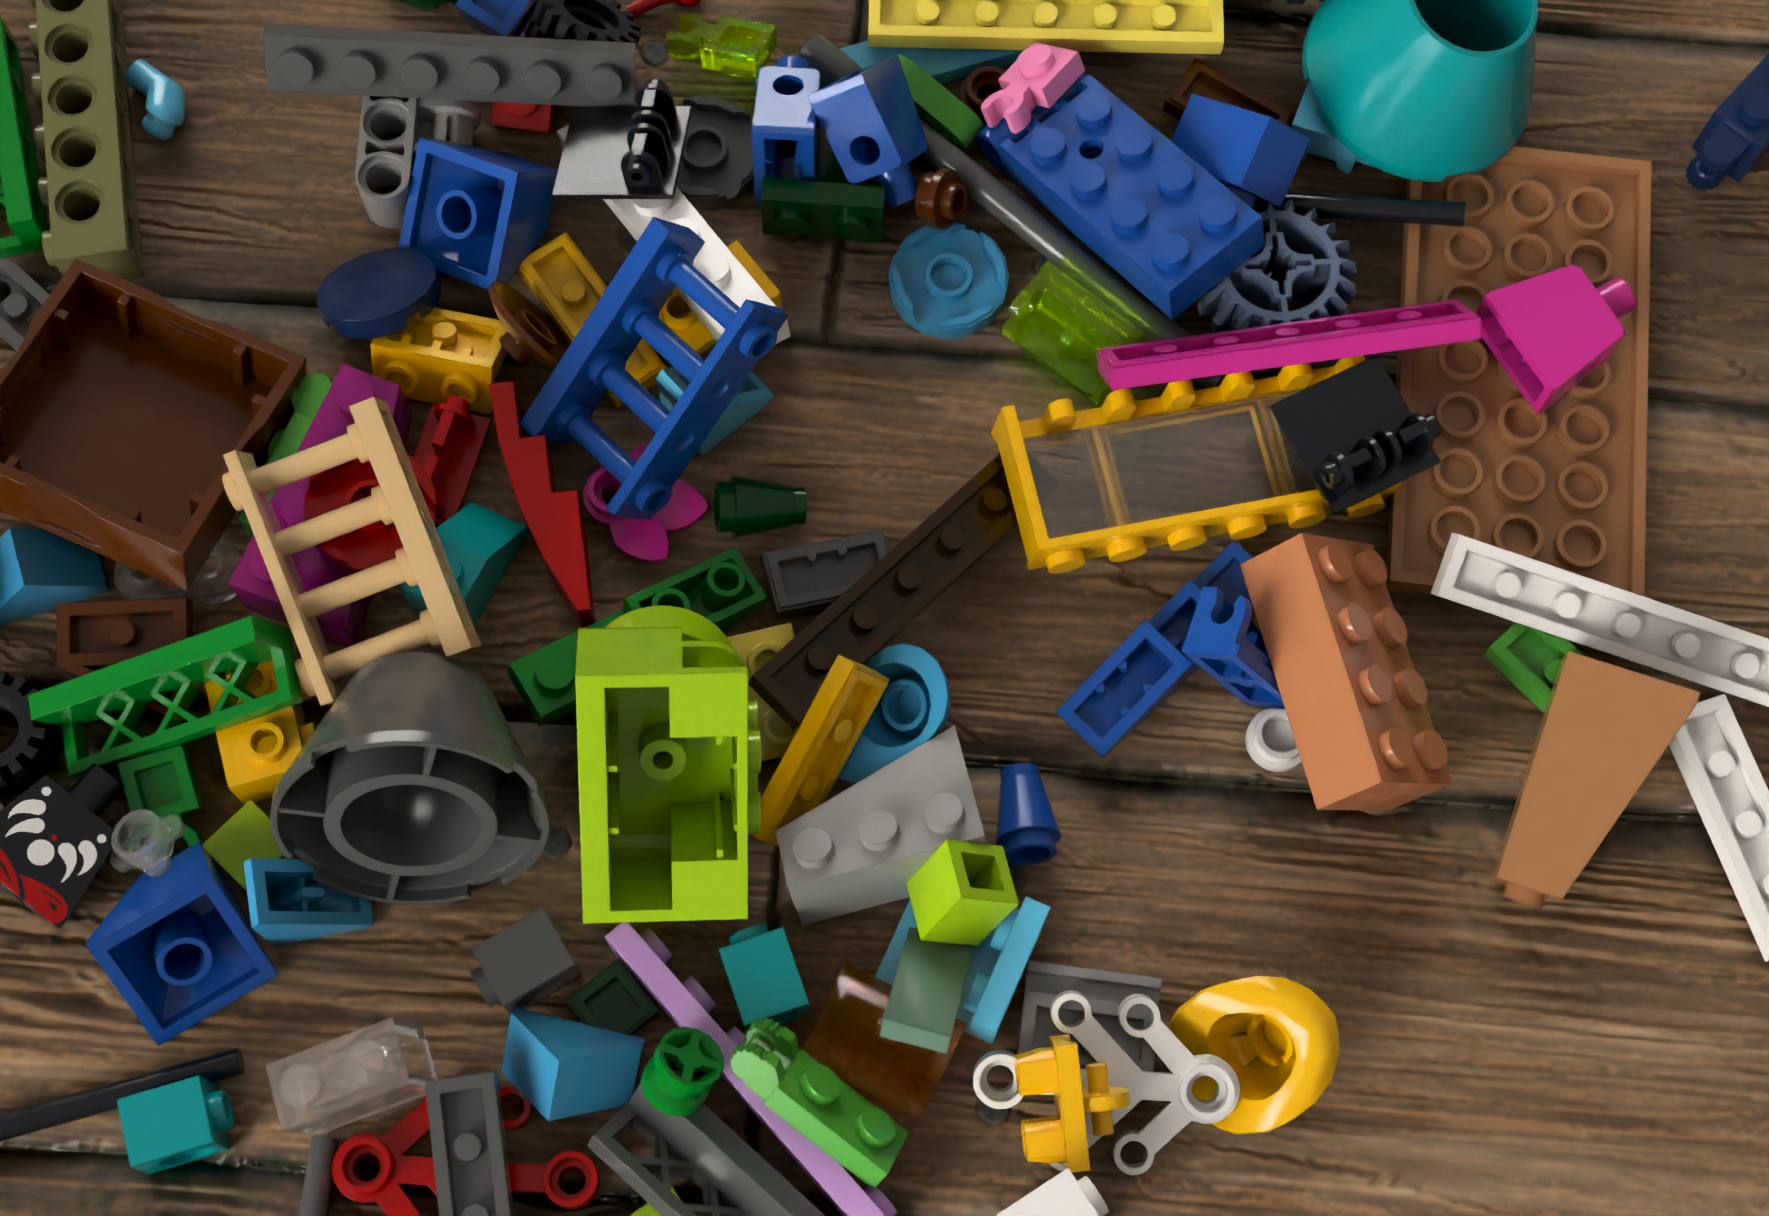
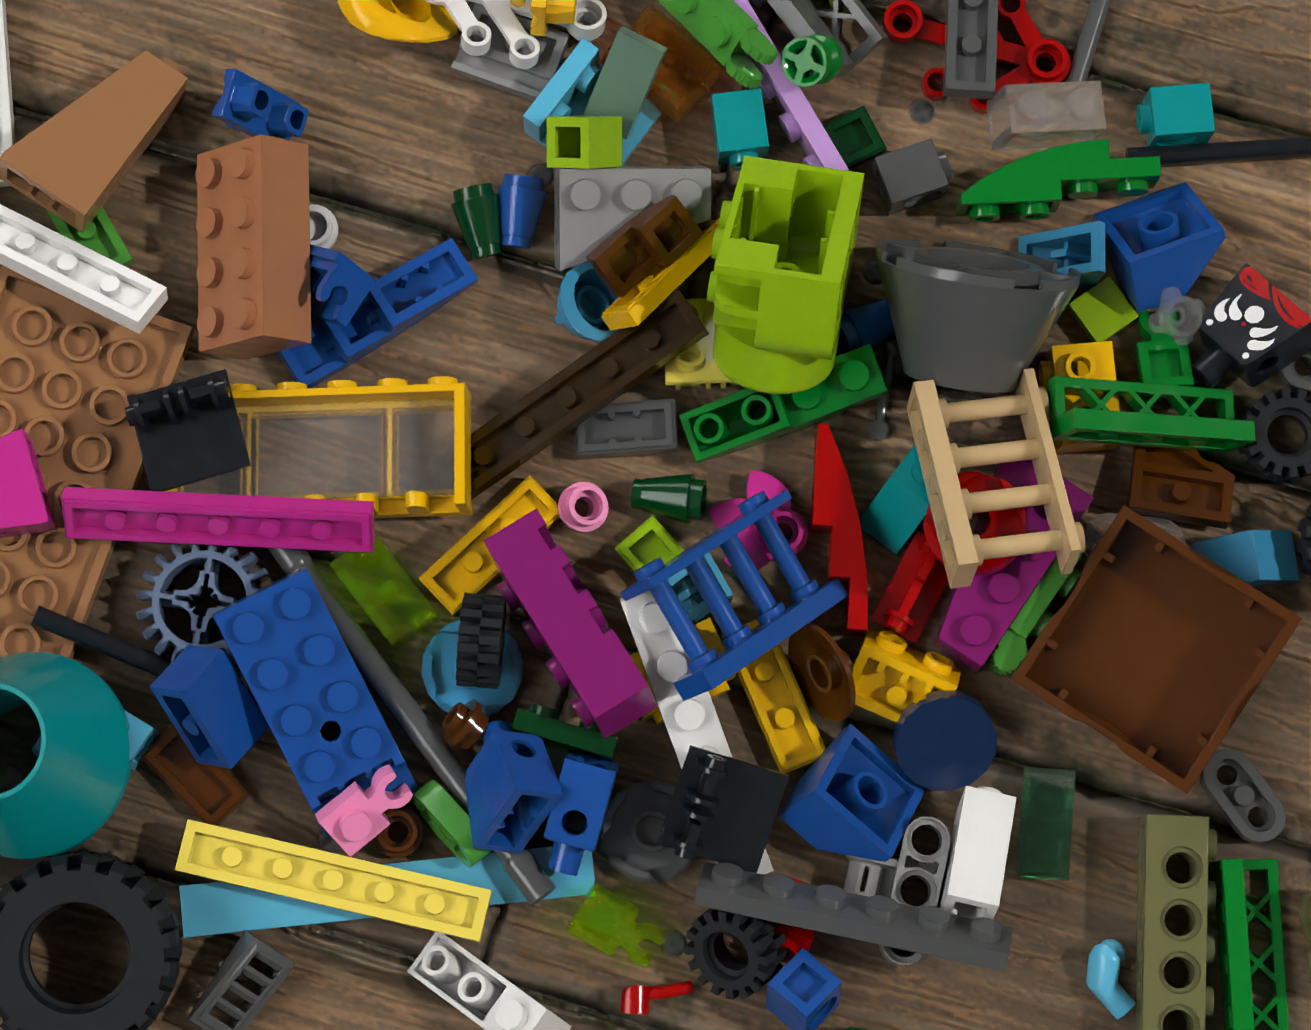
camera: 170 degrees left, 10 degrees up
(248, 236) = (1046, 823): none -> clear green slope
(319, 172) = (977, 853): none -> white slope
(357, 990) = (1036, 182): none -> green slope
(517, 646) = (879, 429): none -> dark grey hinge
(554, 754) = (865, 326): none -> blue cone
(570, 1065) = (892, 96): dark azure slope -> none
(769, 446) = (648, 544): none -> lime tile
(842, 305) = (569, 625): none -> magenta wedge
(844, 783) = (644, 242): none -> reddish brown slope
(849, 464) = (596, 502): none -> bright pink plate
(944, 274) = (481, 640): none -> black tyre
(959, 417) = (468, 564): none -> yellow tile
(1074, 792) = (479, 219): none -> dark green cone
(1391, 861) = (258, 109): none -> blue hips

